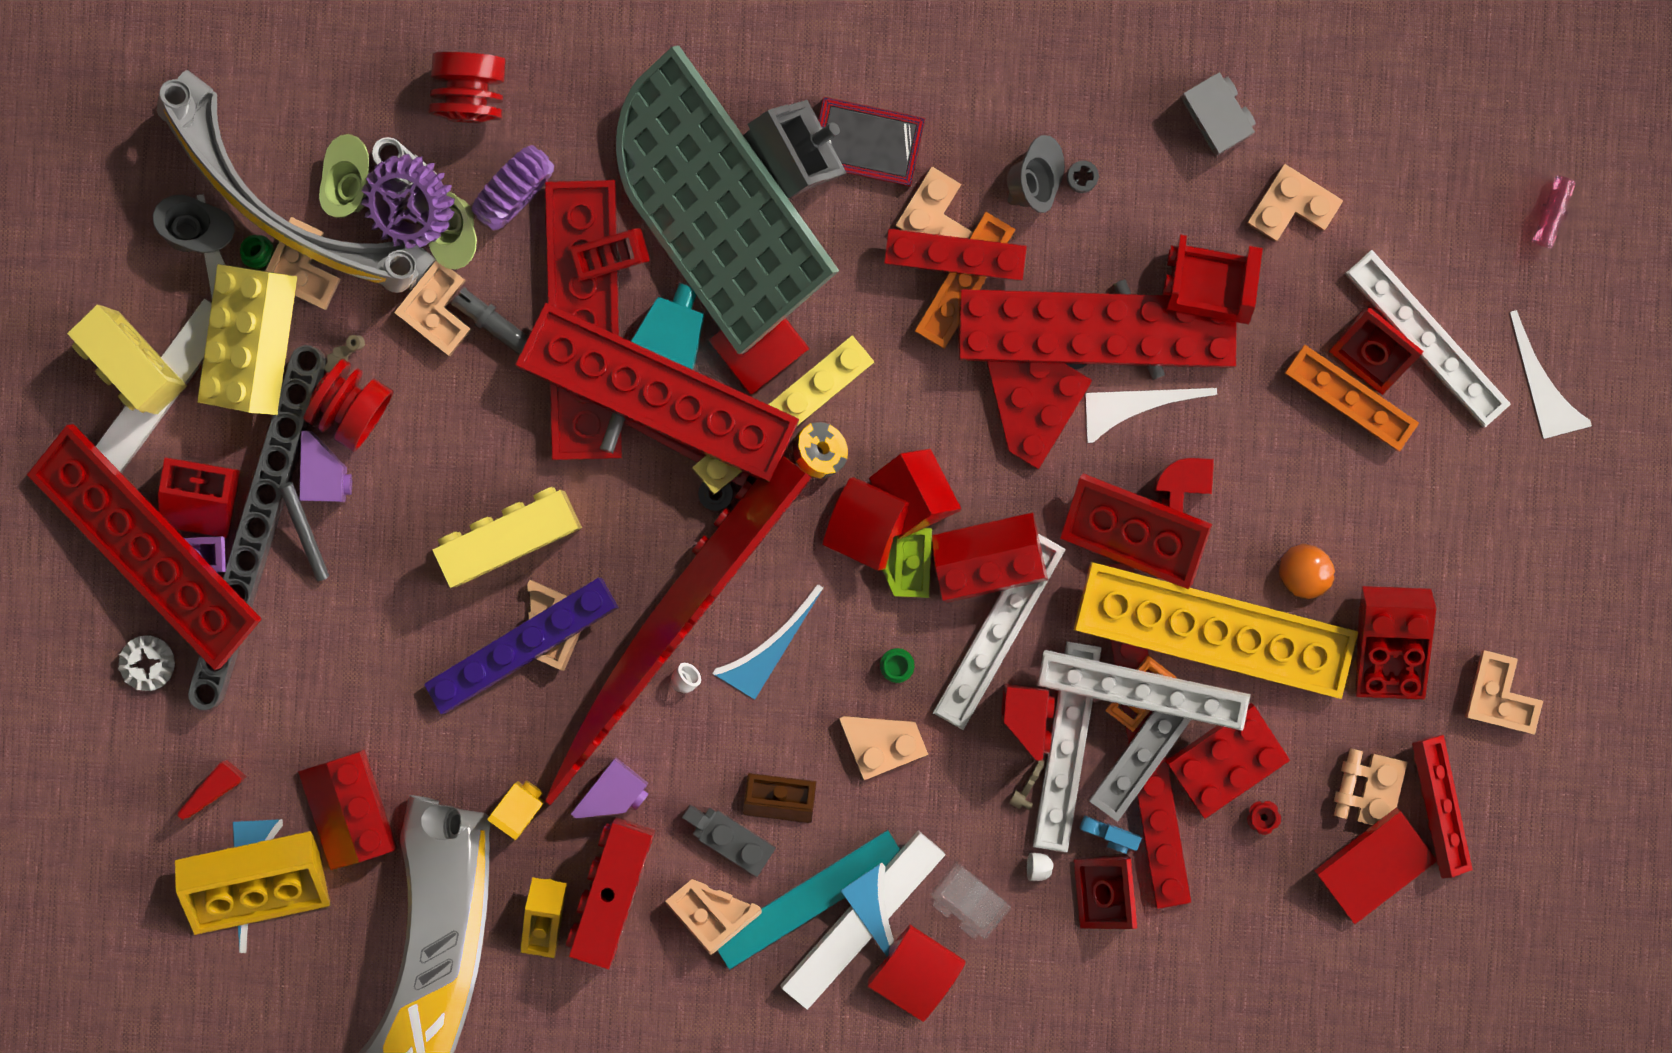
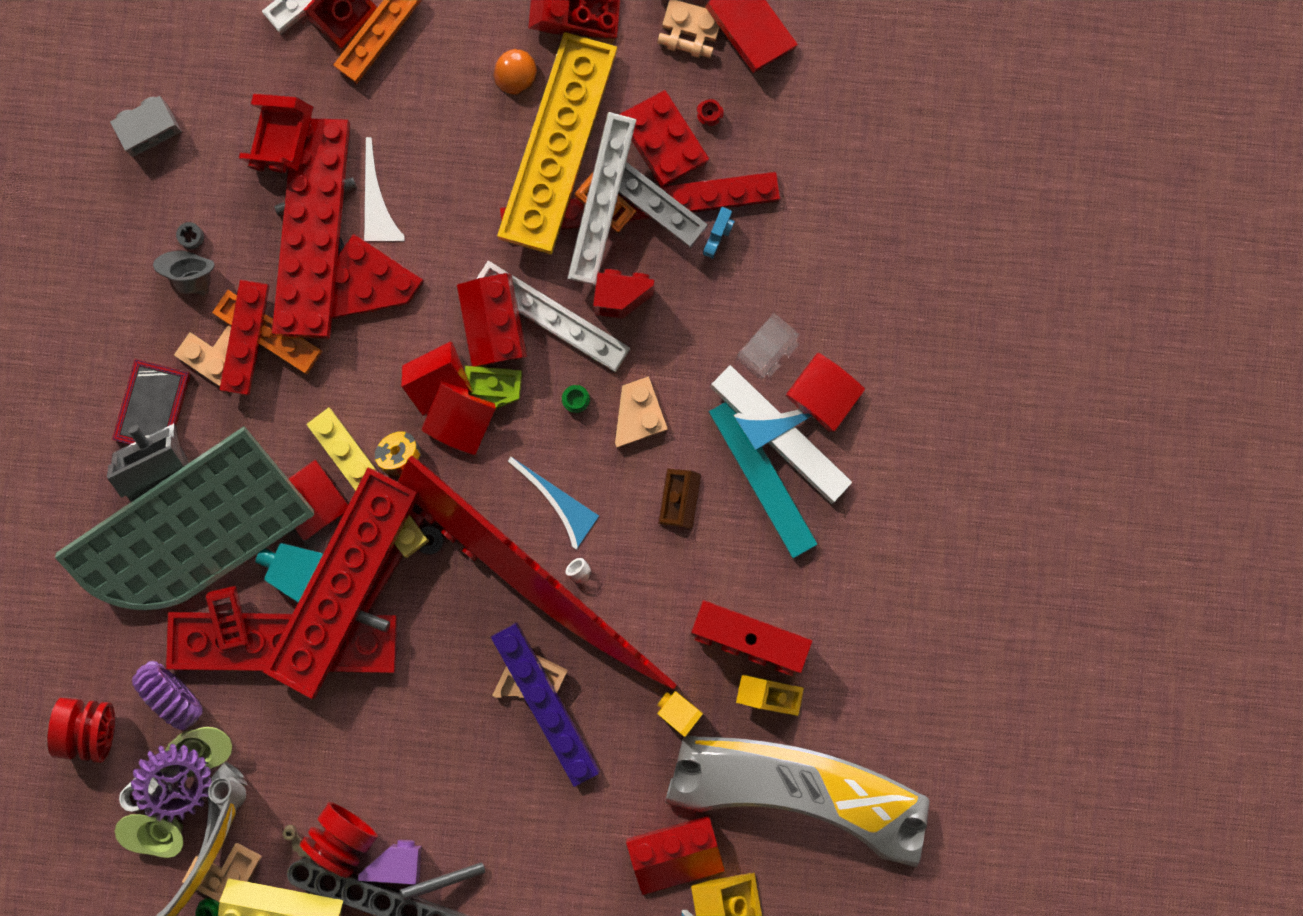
camera: 80 degrees left, 5 degrees down
(426, 309) = (267, 771): light nougat plate -> none
(490, 320) = (275, 722): dark grey pin -> none
(507, 538) = (454, 711): light yellow brick -> none
(613, 792) = (669, 633): medium lavender slope -> none
(711, 914) = (771, 557): light nougat wing -> none
(730, 839) = (711, 539): dark grey hinge -> none
(1018, 798) = (688, 306): dark tan piece -> none
(1039, 867) = (743, 292): white hinge -> none
(1064, 762) = (662, 268): white tile -> none
(1105, 892) = (765, 237): red slope -> none
(1136, 531) = (474, 201): red plate -> none
(1182, 477) = (435, 165): red brick -> none
(1289, 195) = (215, 72): light nougat plate -> none

